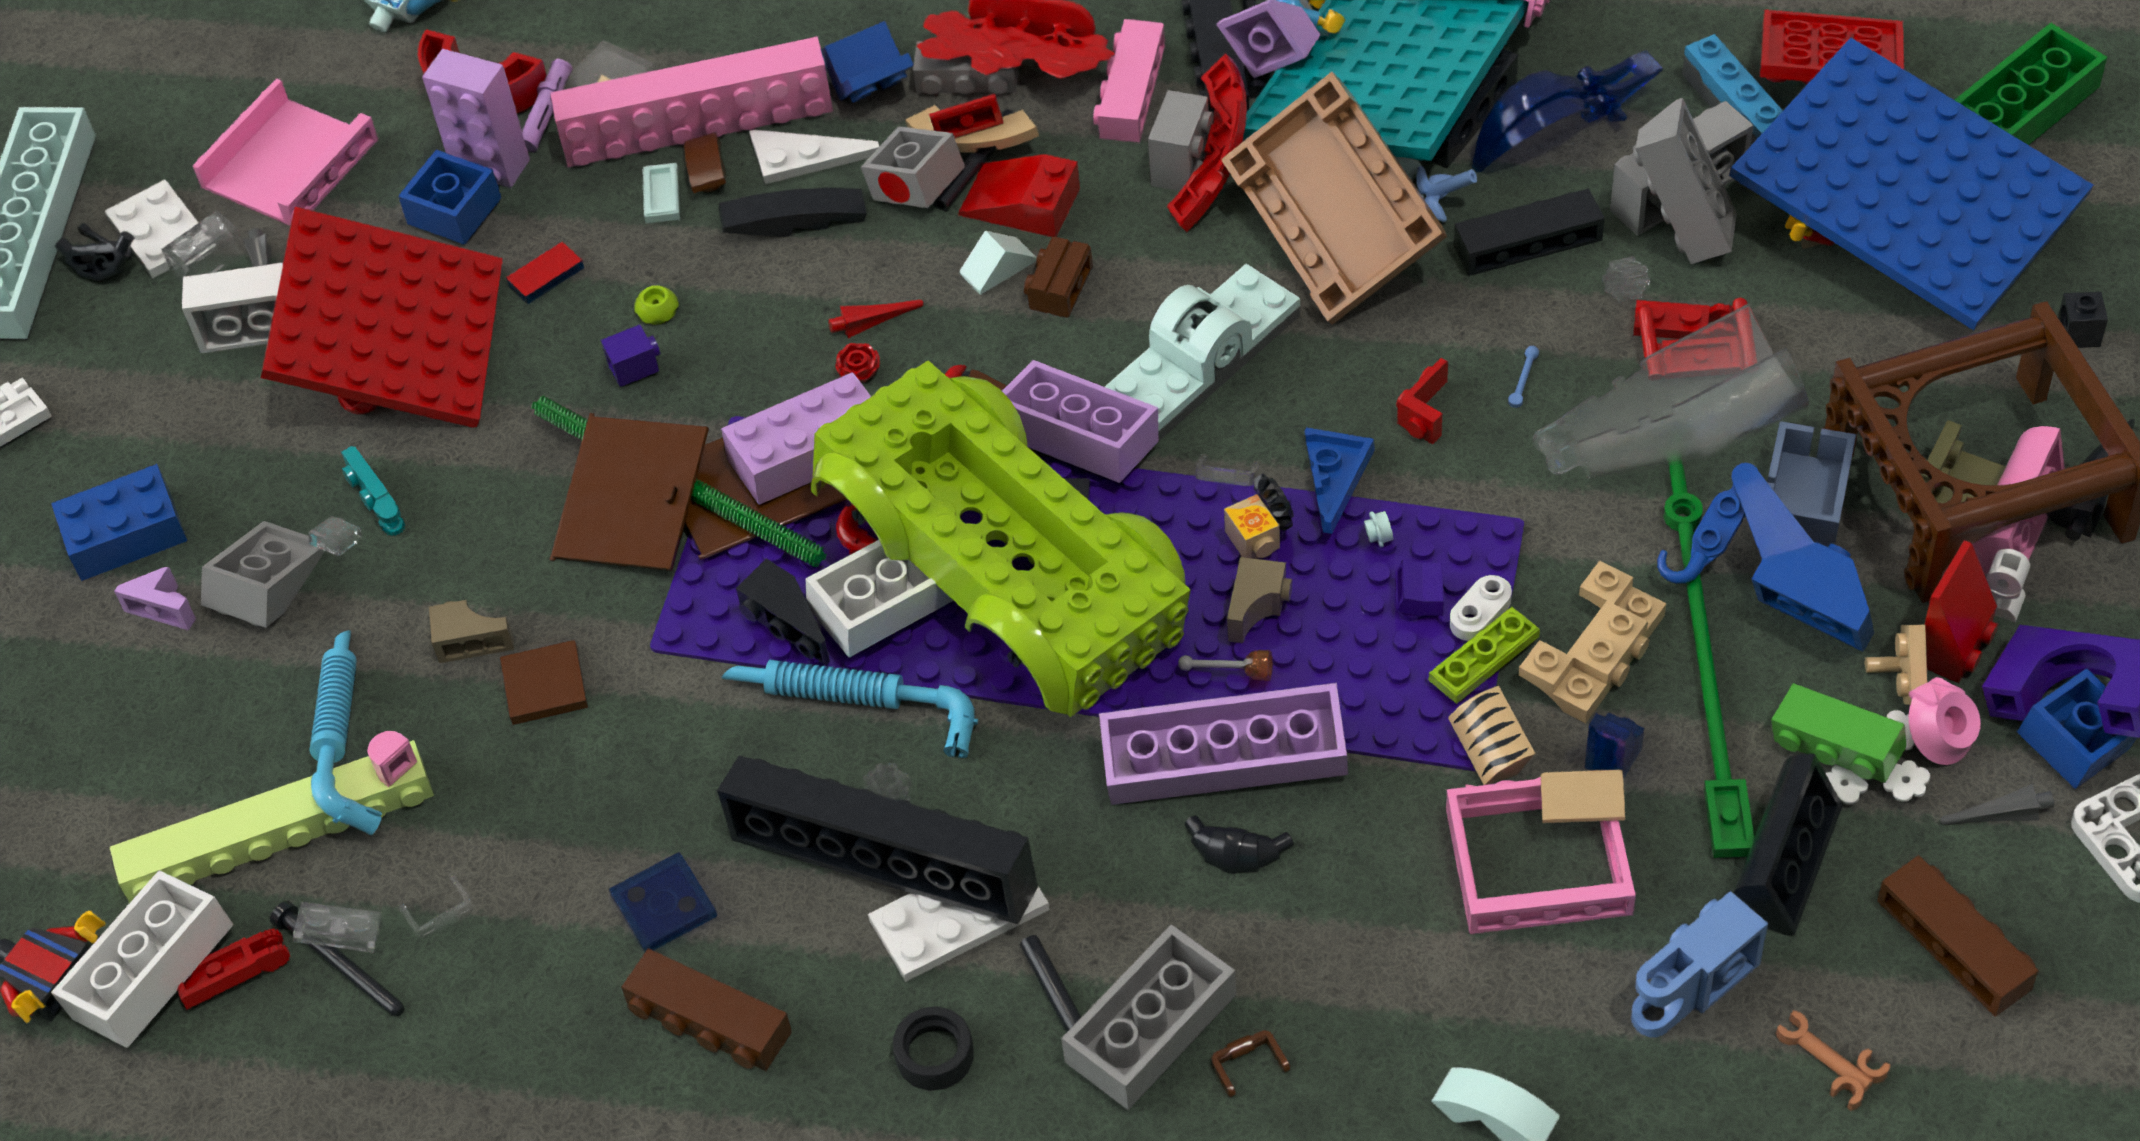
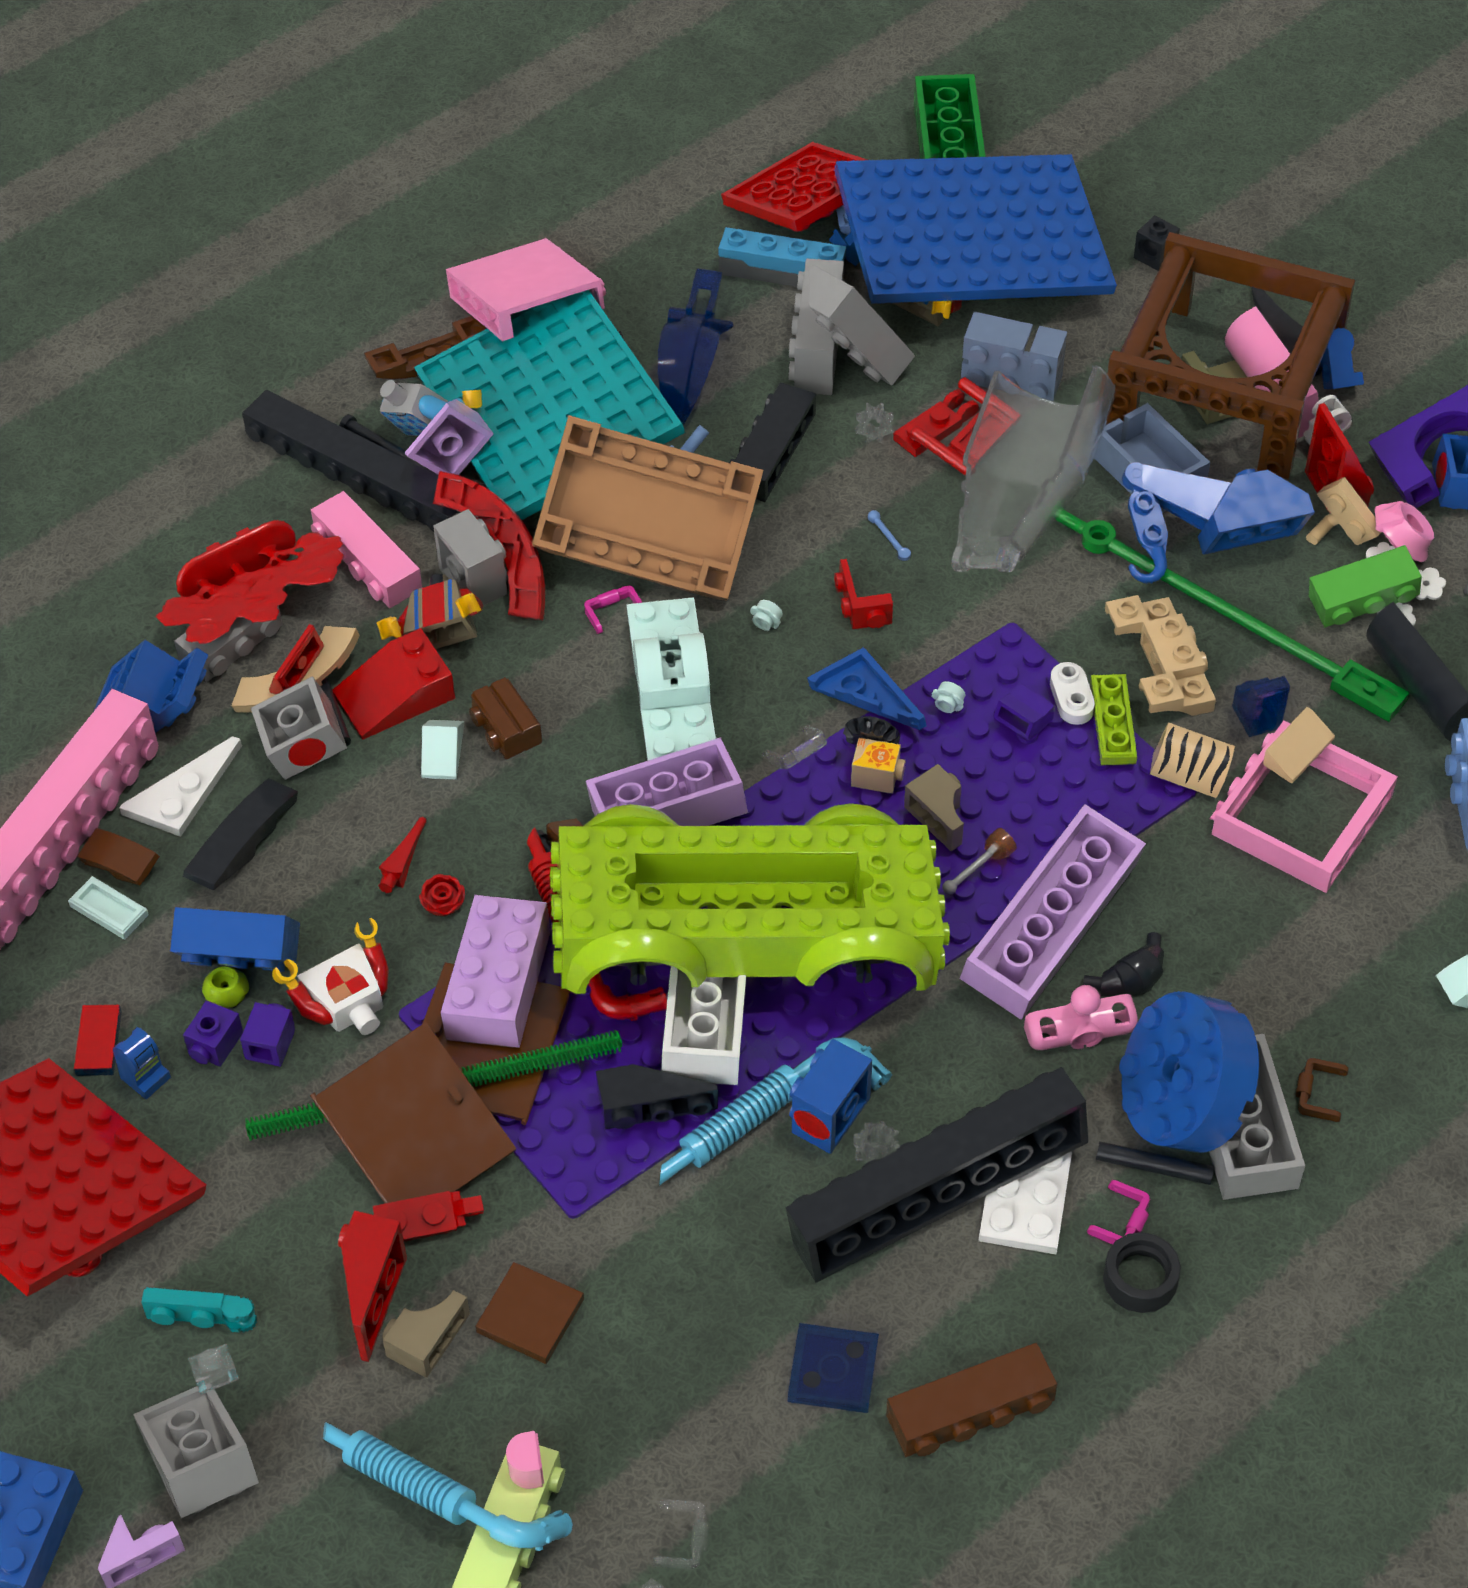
camera: 55 degrees left, 0 degrees up
(468, 562) = (373, 1265): none -> red slope
(537, 305) = (140, 1063): none -> blue leg
(564, 559) = (431, 1213): none -> red hinge
(600, 322) = (212, 1034): none -> dark purple brick
(685, 273) = (234, 938): none -> blue brick
(714, 366) = (342, 988): none -> torso
(892, 722) = (830, 1095): none -> blue brick
(987, 1014) = (1137, 1218): none -> dark pink piece
(1108, 165) = (440, 610): none -> torso
(1126, 934) = (1189, 1072): none -> blue brick
(1140, 842) = (1081, 1021): none -> bright pink piece
(1249, 252) = (606, 599): none -> dark pink piece
(1342, 358) = (766, 615): none -> light aqua plate
(1813, 336) = (1000, 346): none -> sand blue piece
(2094, 538) = (1337, 362): none -> blue leg

